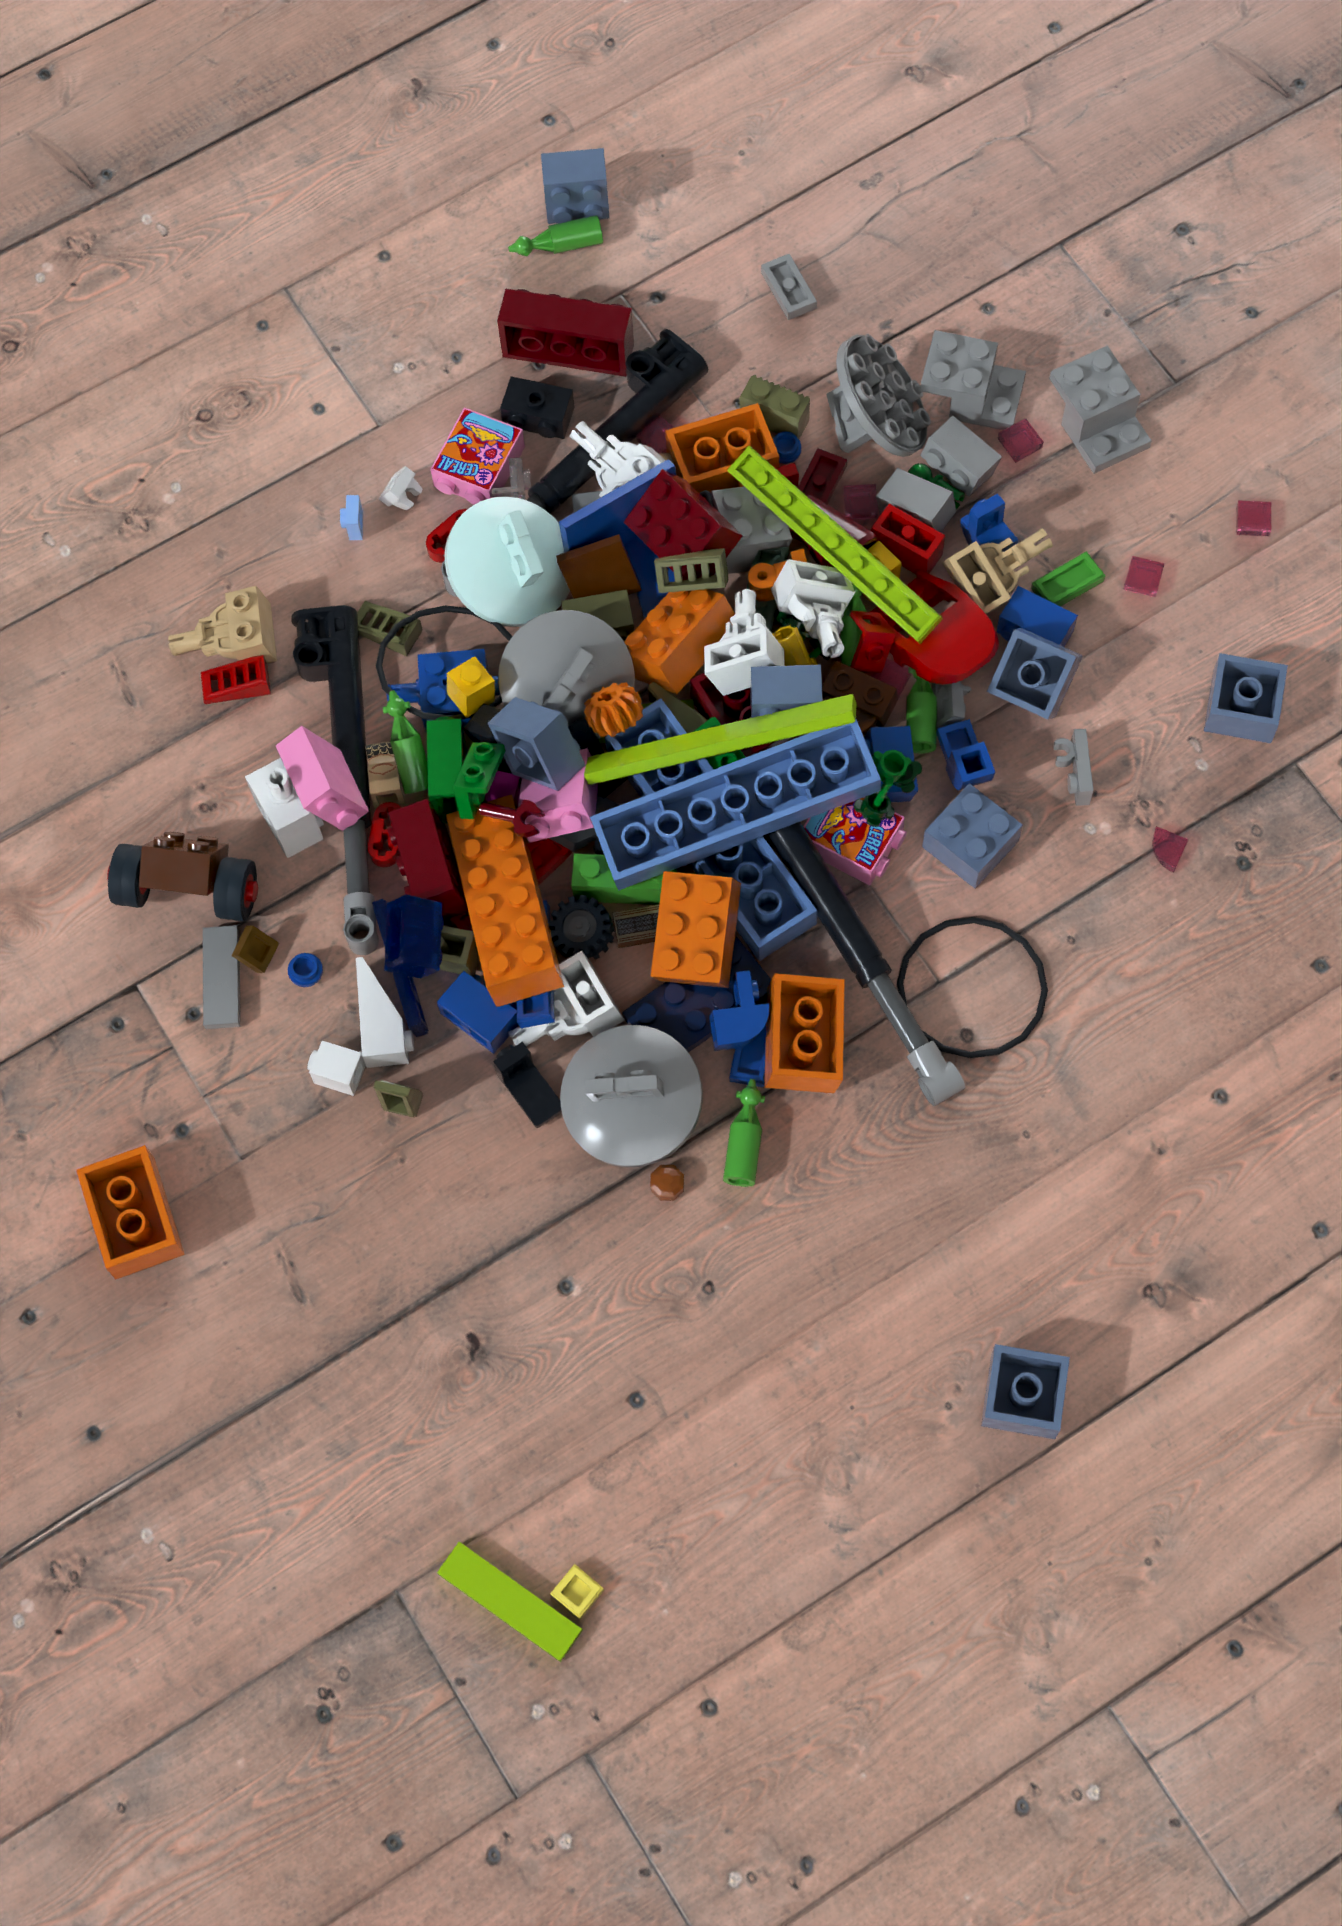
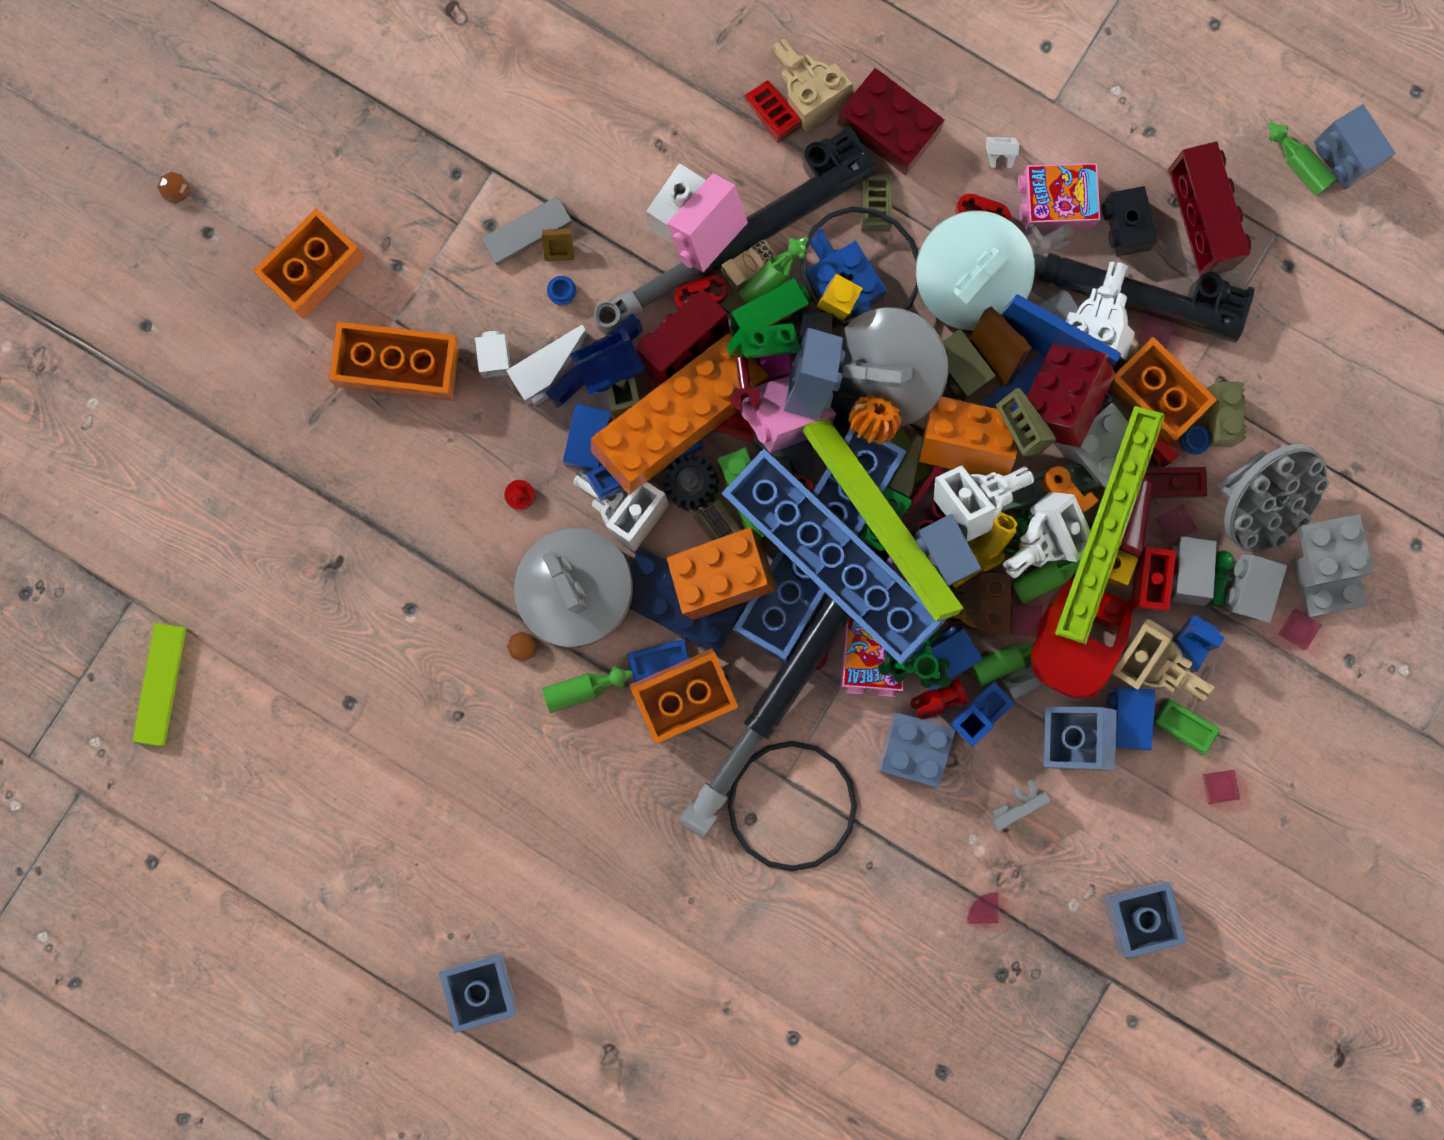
camera: 55 degrees right, 15 degrees up
(183, 867) = (590, 157): brick -> none
(287, 1169) = (394, 361): none -> orange brick
(313, 573) = (890, 121): none -> dark red brick
(352, 517) = (957, 125): light blue plate -> none
(398, 1098) = (492, 413): olive slope -> none
(501, 1112) = (519, 495): none -> red tile
(526, 1084) = (547, 505): black bracket -> none
(577, 1591) = (188, 729): light yellow tile -> none
(739, 1025) = (667, 645): blue brick -> none
(788, 286) = (1350, 370): light grey plate -> none
(874, 642) = (1042, 597): red bracket -> none
(930, 791) = (936, 701): none -> red piece
(1100, 409) = (1358, 684): light grey bracket -> none
(1253, 518) = (1322, 854): clear pink tile -> none

